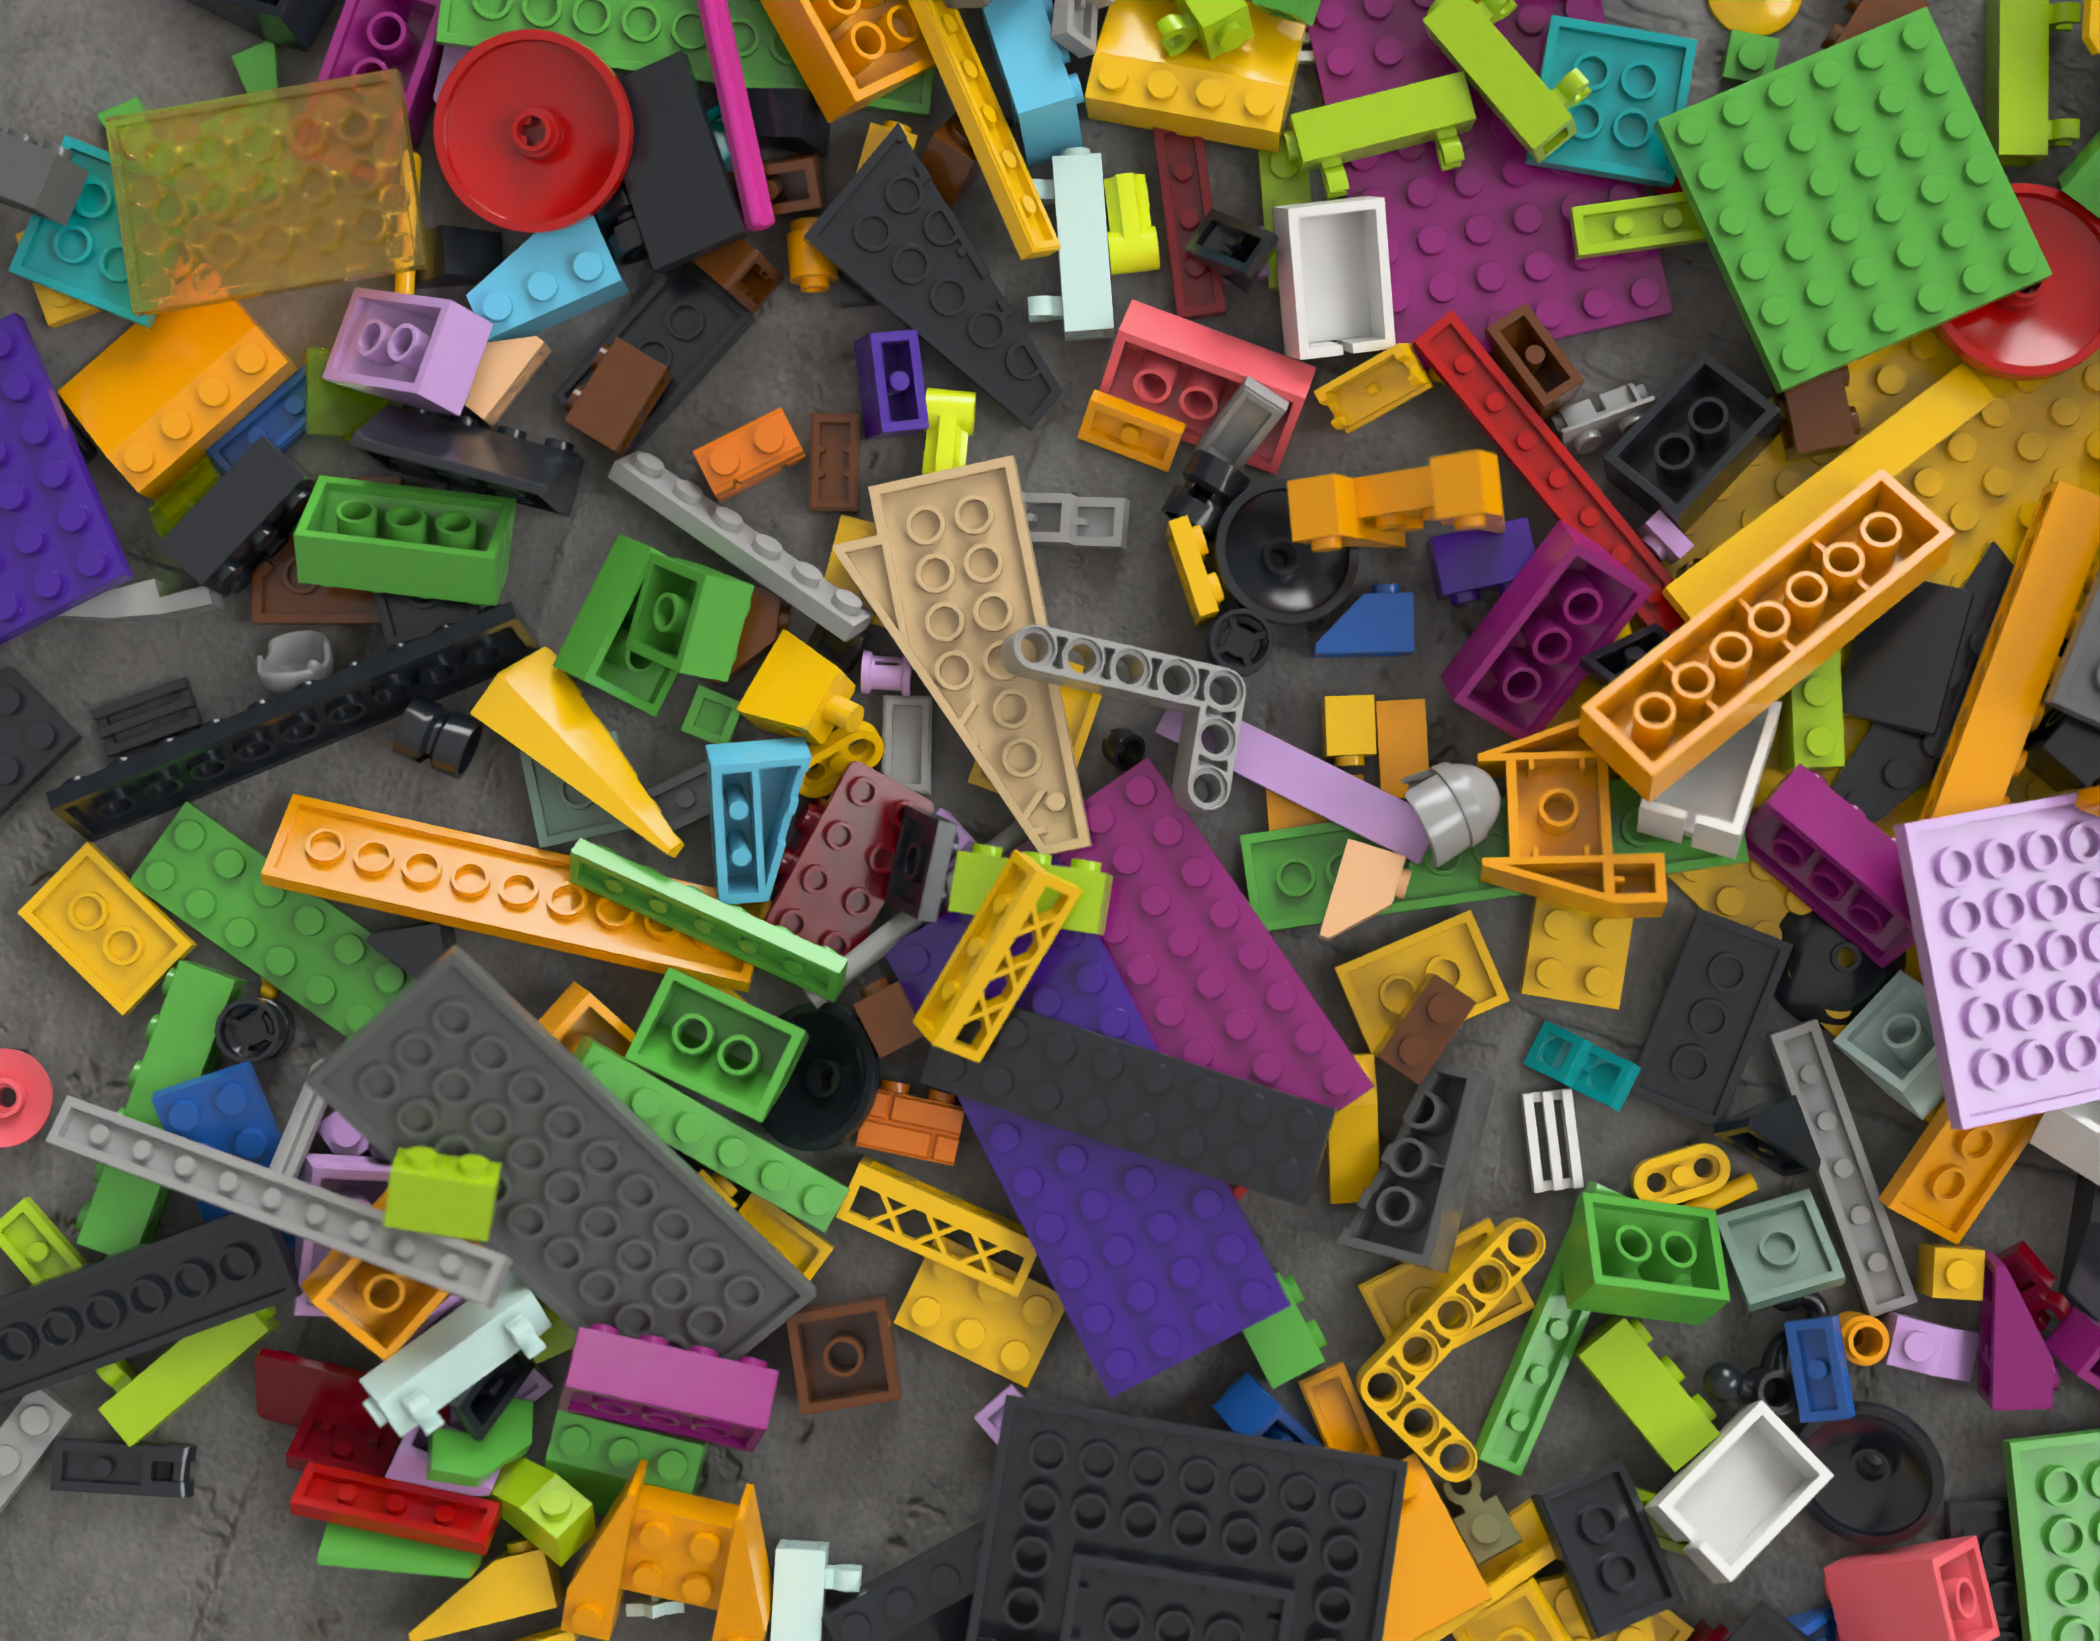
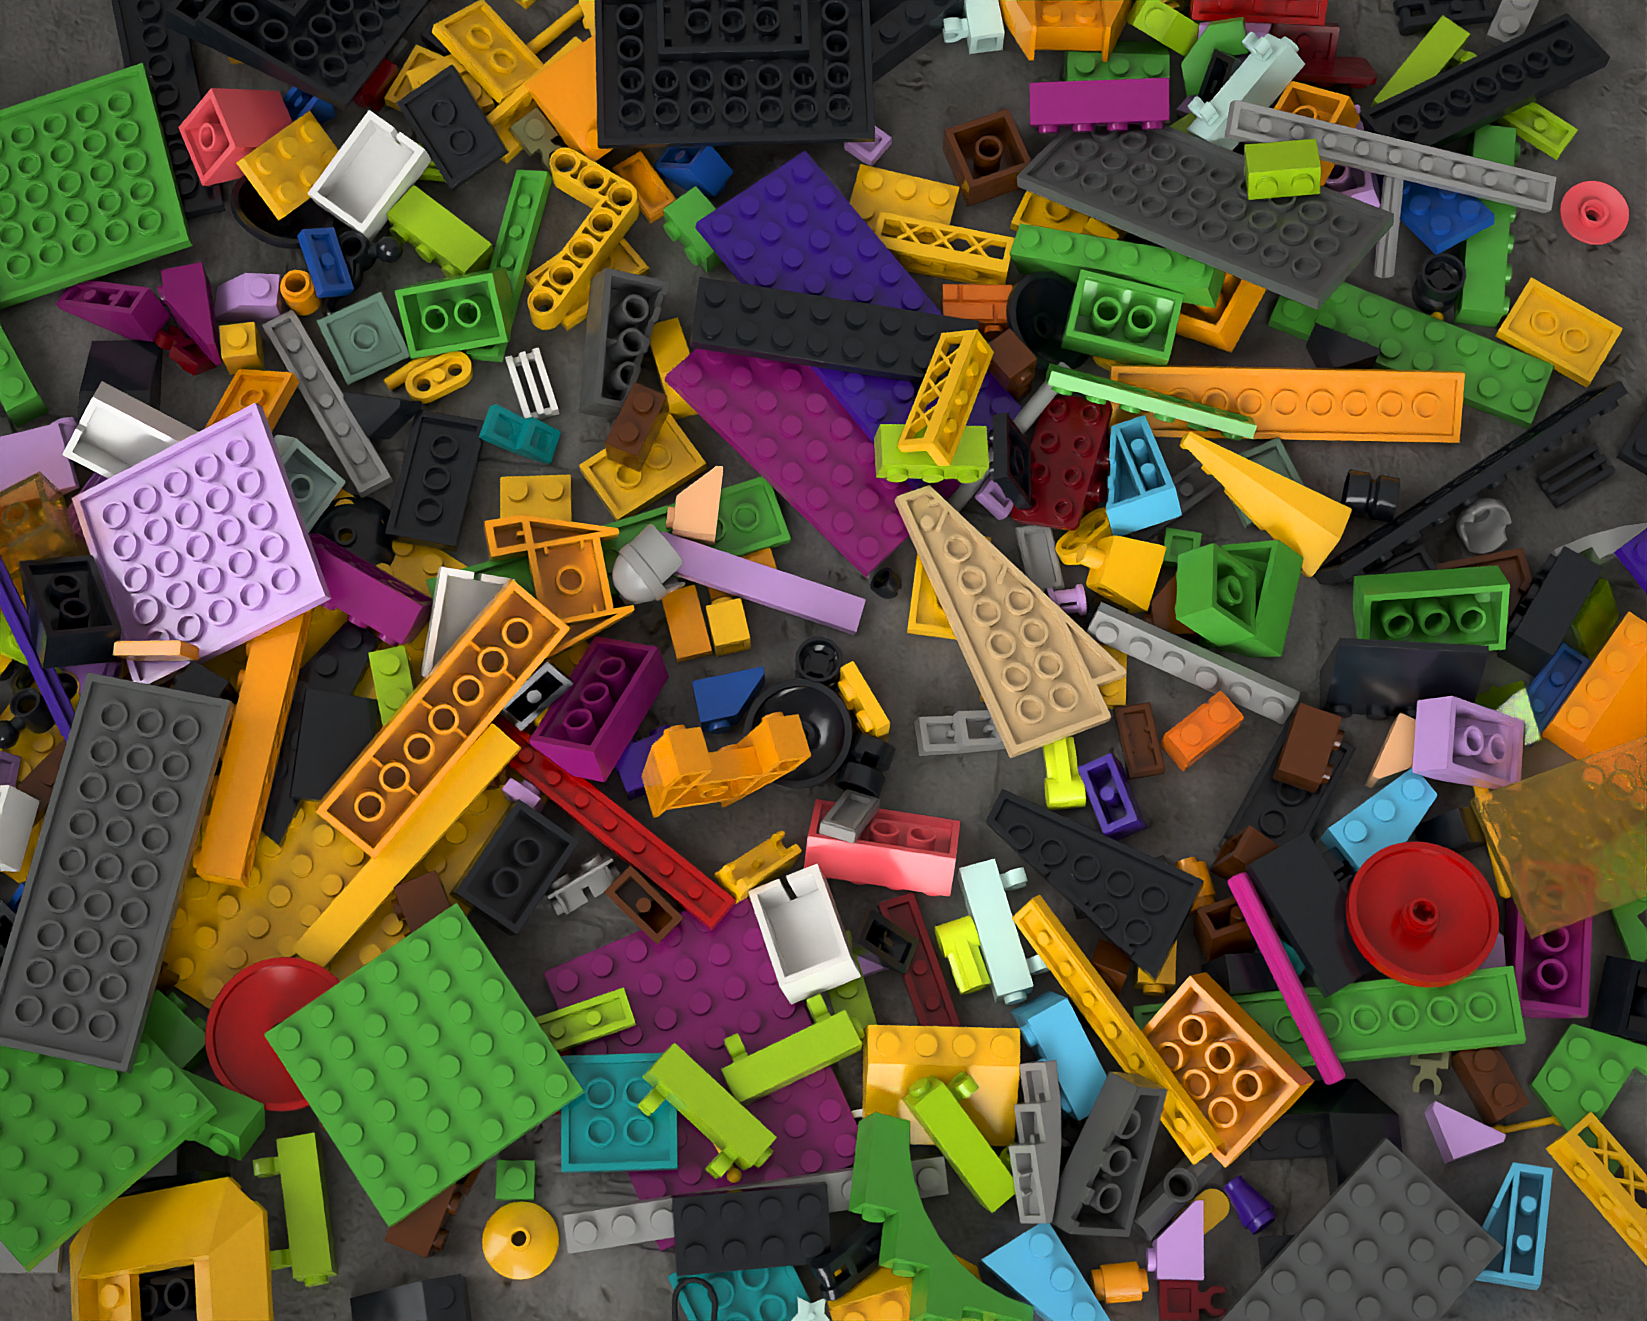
camera: 165 degrees right, 15 degrees down
(1131, 430) = (929, 804): light orange plate -> none
(1147, 688) = (881, 609): light grey beam -> none
(1848, 1534) = (289, 164): none -> yellow plate

